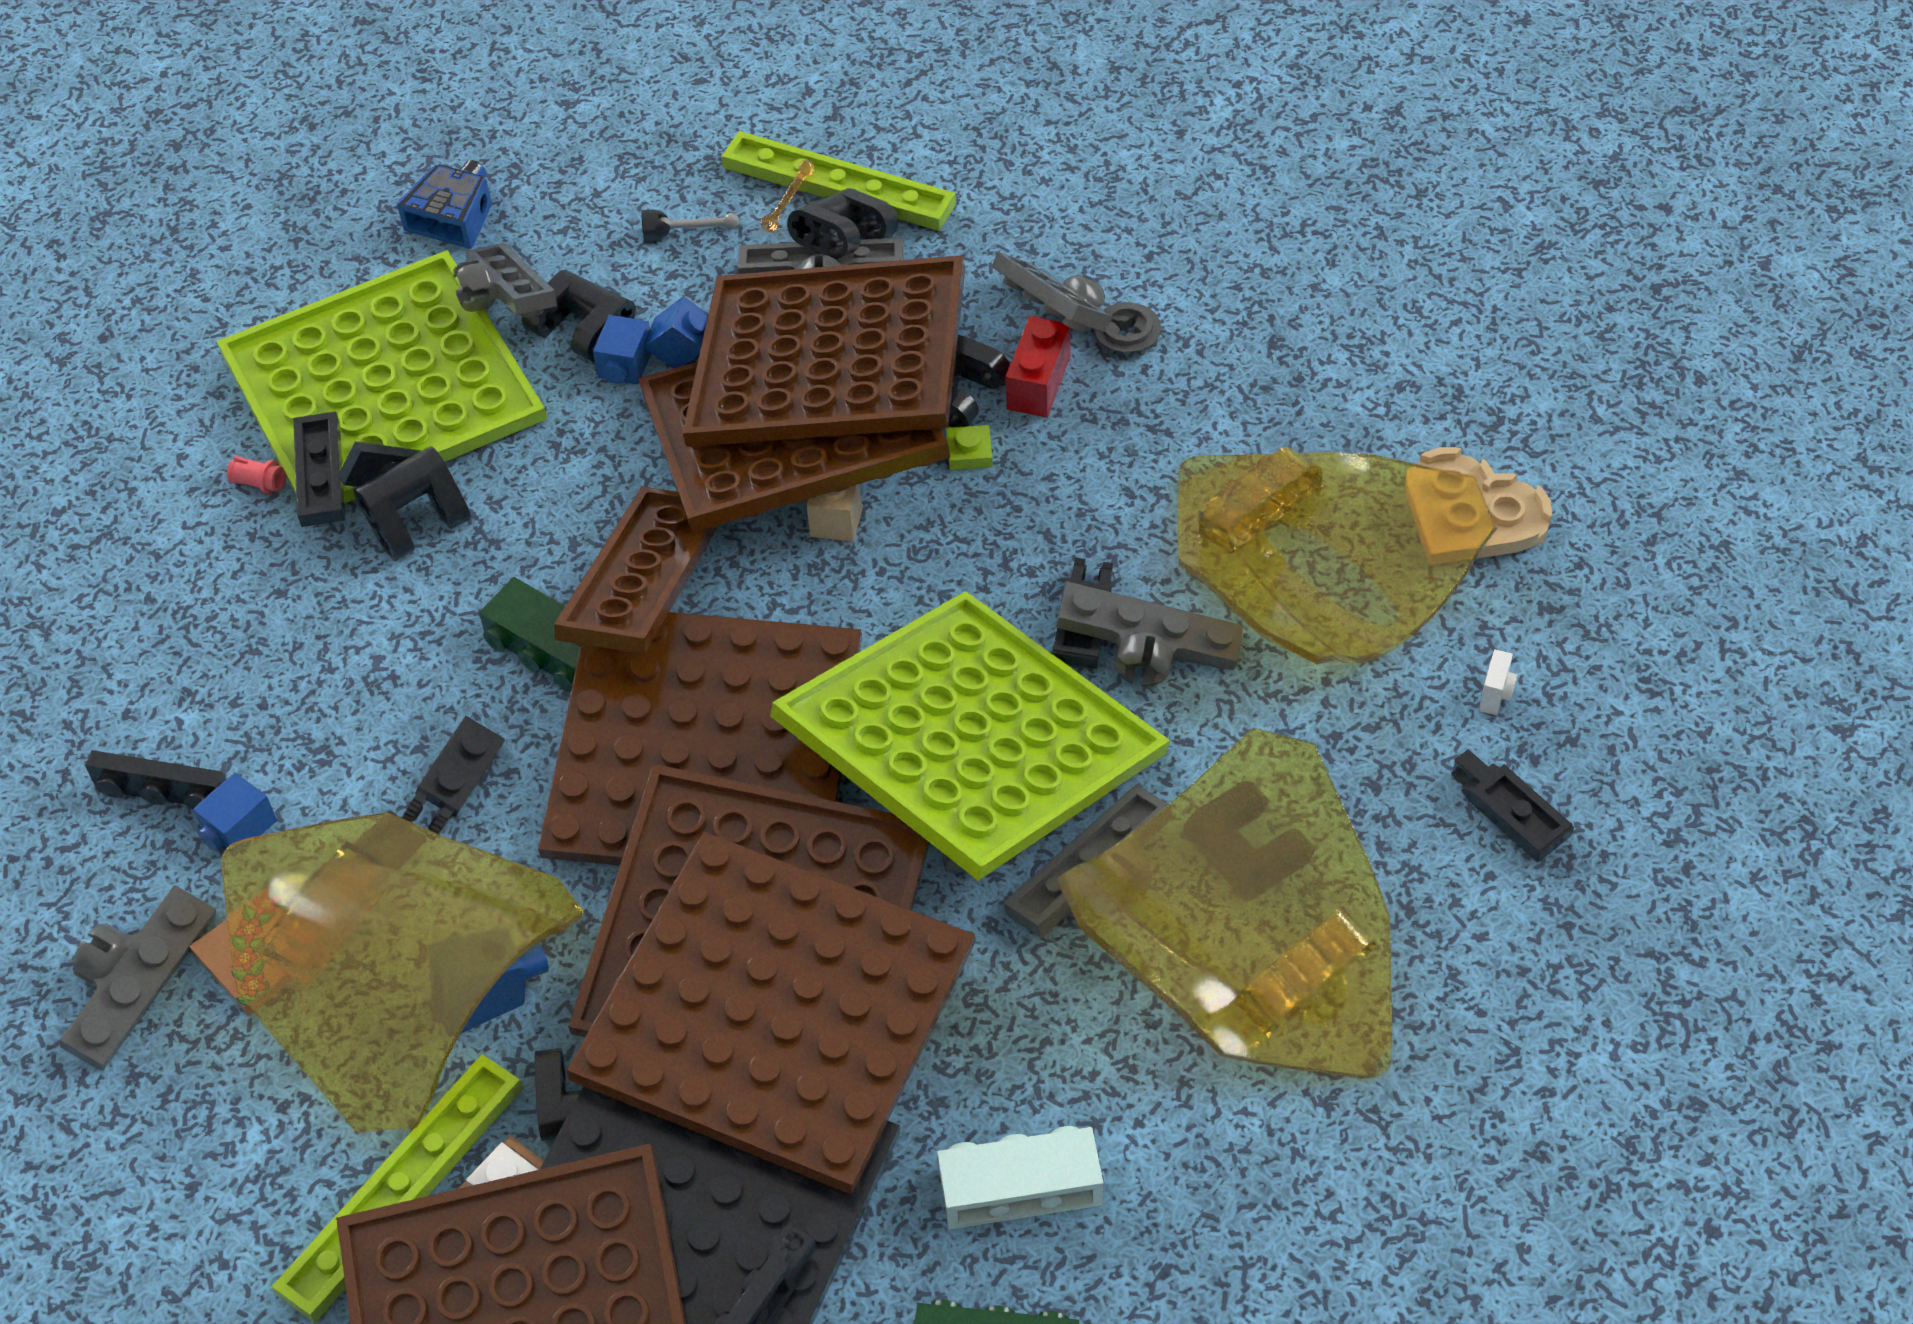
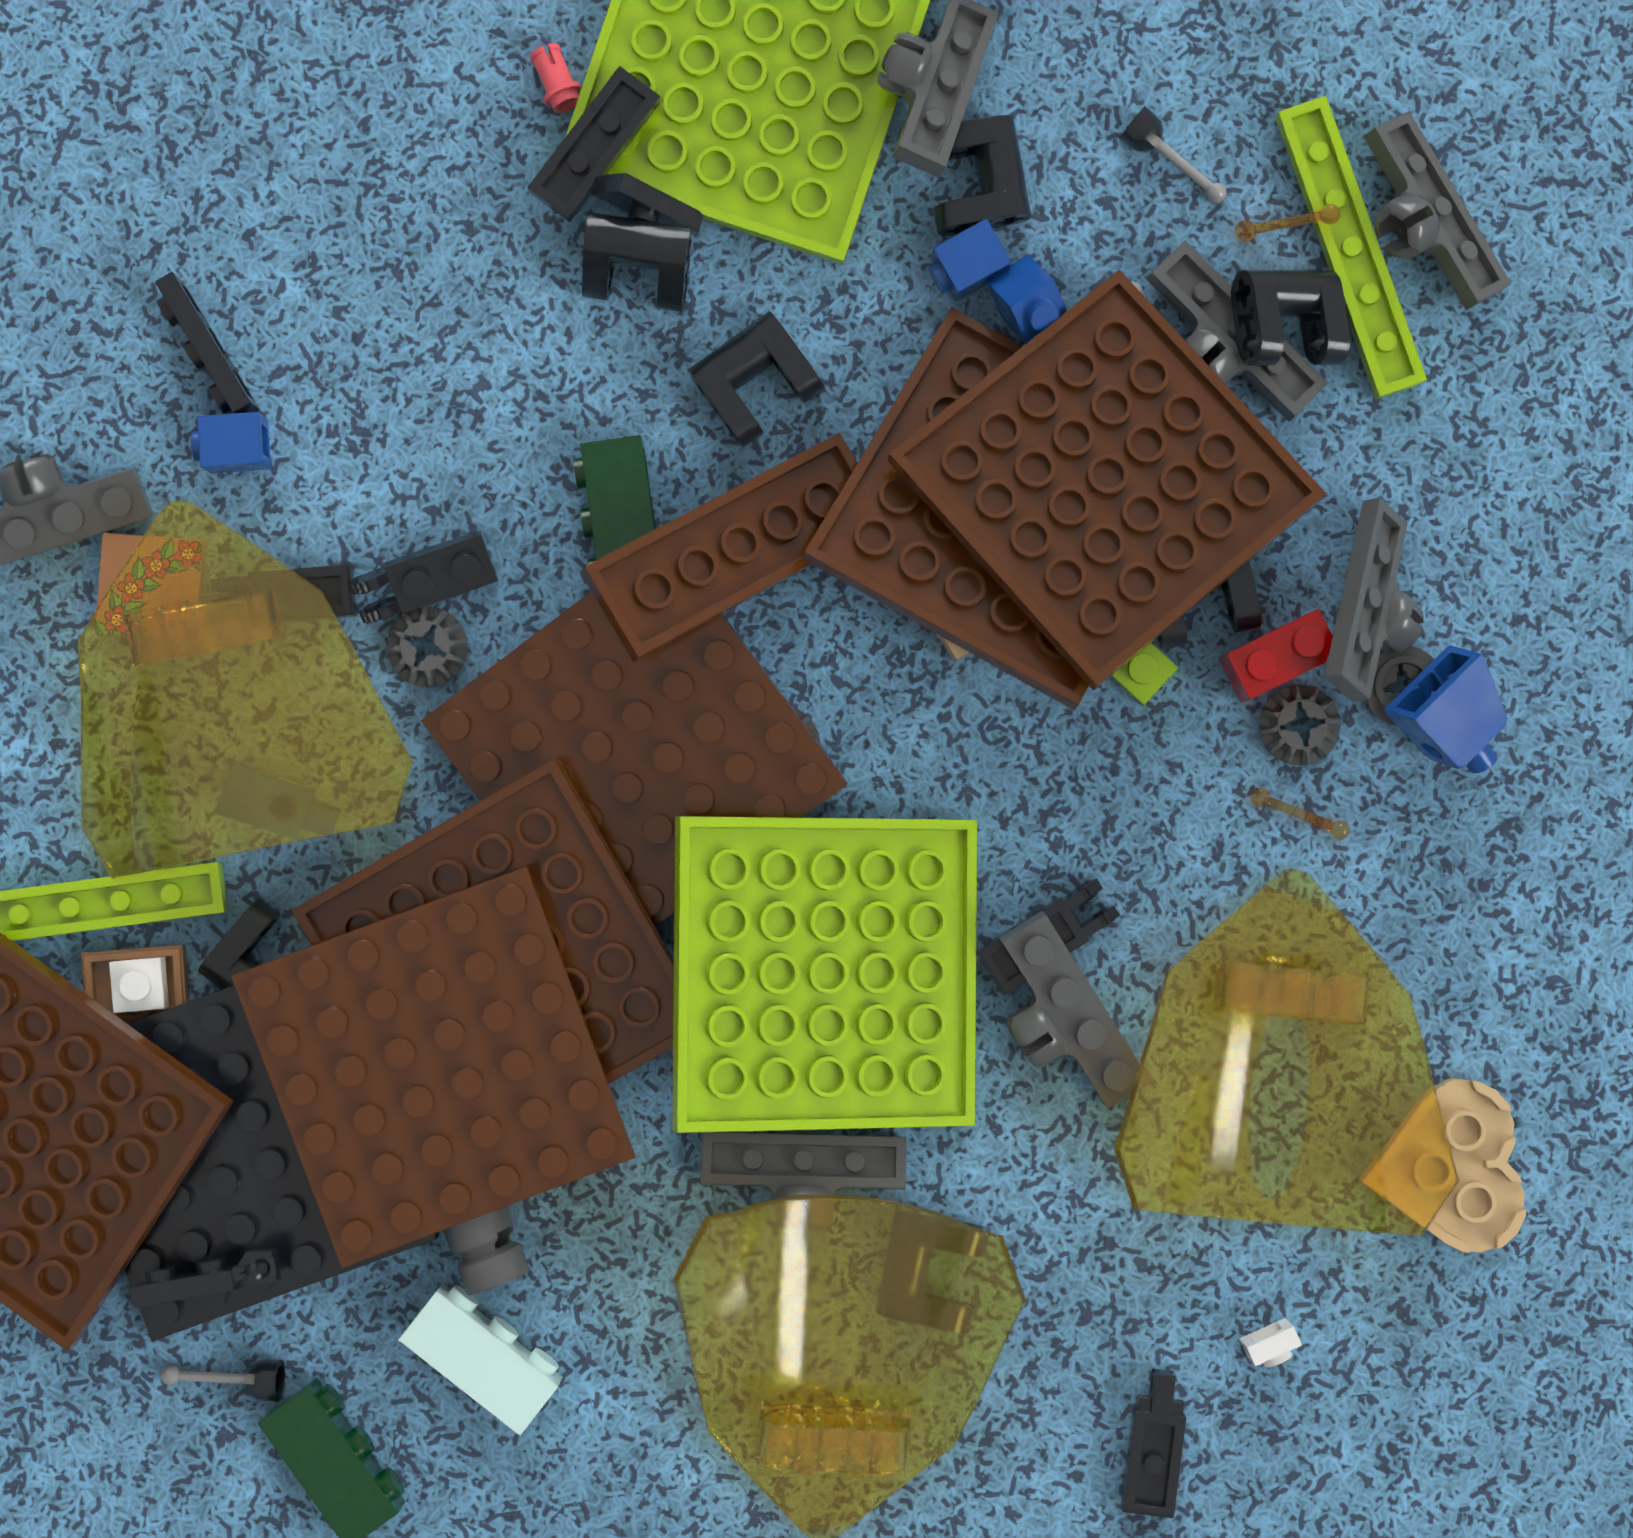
camera: 40 degrees right, 35 degrees up
(482, 832) = (434, 669): none -> dark grey gear
(534, 517) = (740, 361): none -> black connector
(862, 135) = (1431, 213): none -> dark grey plate
(936, 1102) = (487, 1251): none -> dark grey wheel
(1099, 406) = (1287, 744): none -> dark grey gear
(1119, 446) = (1261, 797): none -> clear orange hinge
(1168, 304) = (1452, 710): none -> blue torso

